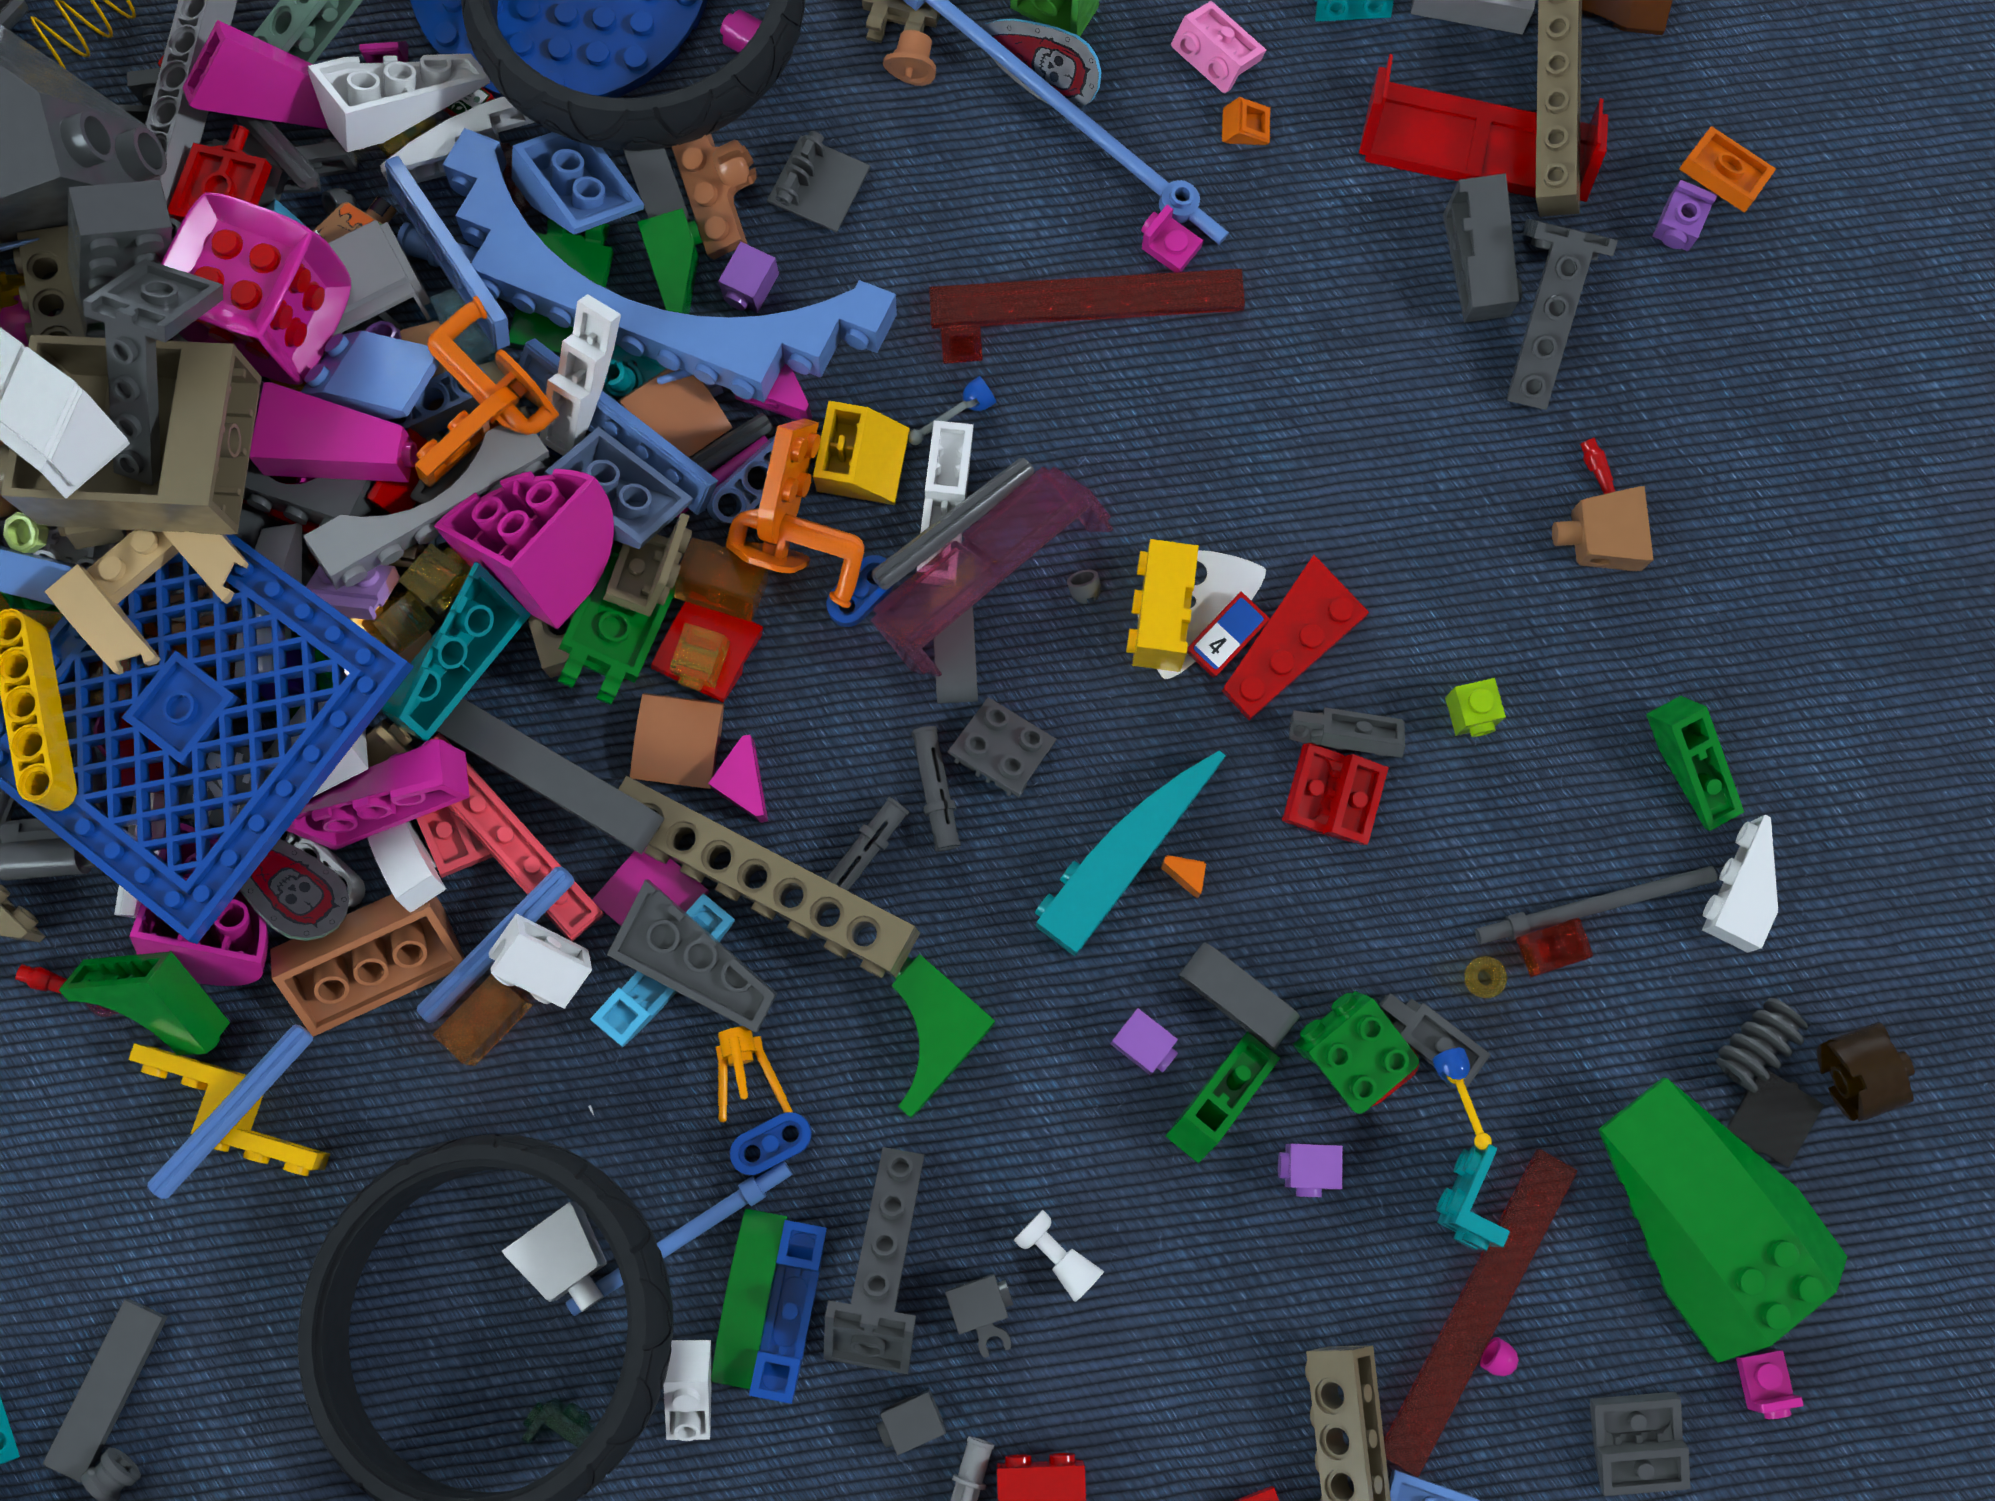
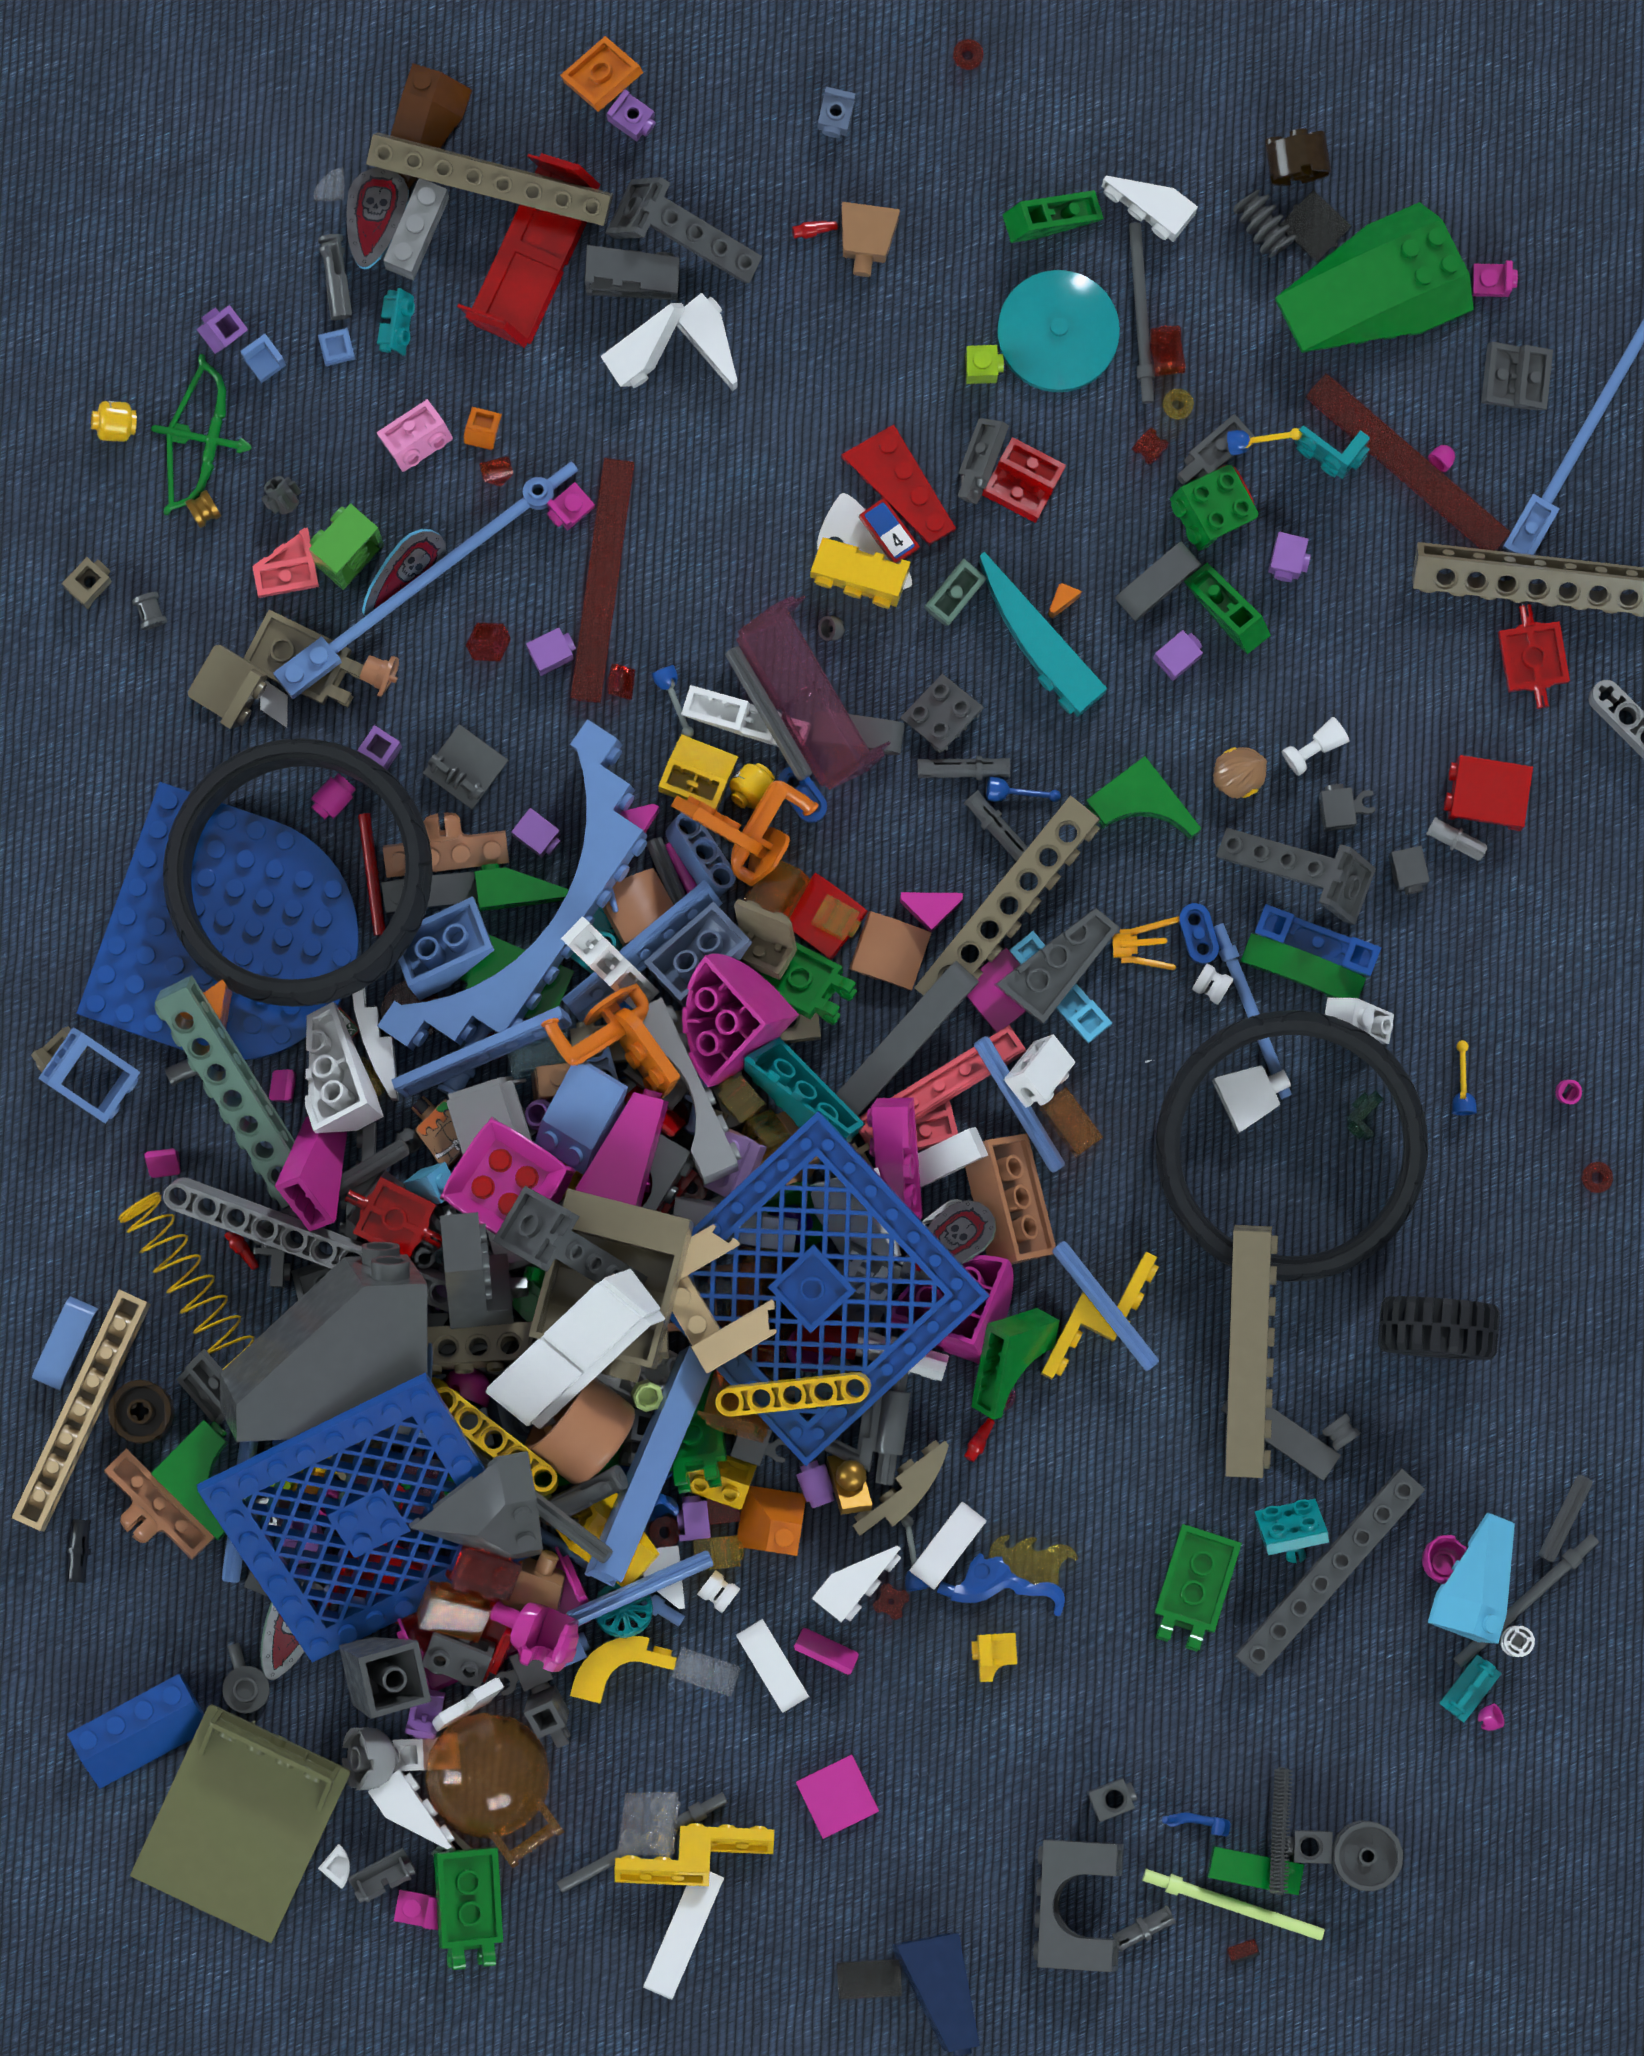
camera: 85 degrees left, 5 degrees up
(190, 1323) = (1249, 1351): none -> dark tan brick
(704, 1175) = (1219, 986): none -> white wheel
(816, 72) = (380, 747): none -> medium lavender brick
(861, 519) = (750, 785): none -> yellow head
(916, 839) = (998, 790): none -> blue hinge
(979, 179) = (488, 642): none -> clear red slope
(982, 250) = (551, 650): none -> medium lavender brick
(1002, 1157) = (1240, 772): none -> medium nougat hair
(1165, 731) = (955, 592): none -> sand green brick
(1195, 147) = (496, 471): none -> clear red slope
(1394, 281) = (642, 349): none -> white slope
(1419, 950) = (1150, 446): none -> clear red wheel
(1429, 362) = (705, 330): none -> white slope
(1544, 801) = (1058, 331): none -> teal dish
(1747, 472) = (836, 125): none -> sand blue brick
(1887, 606) = (968, 45): none -> clear red plate

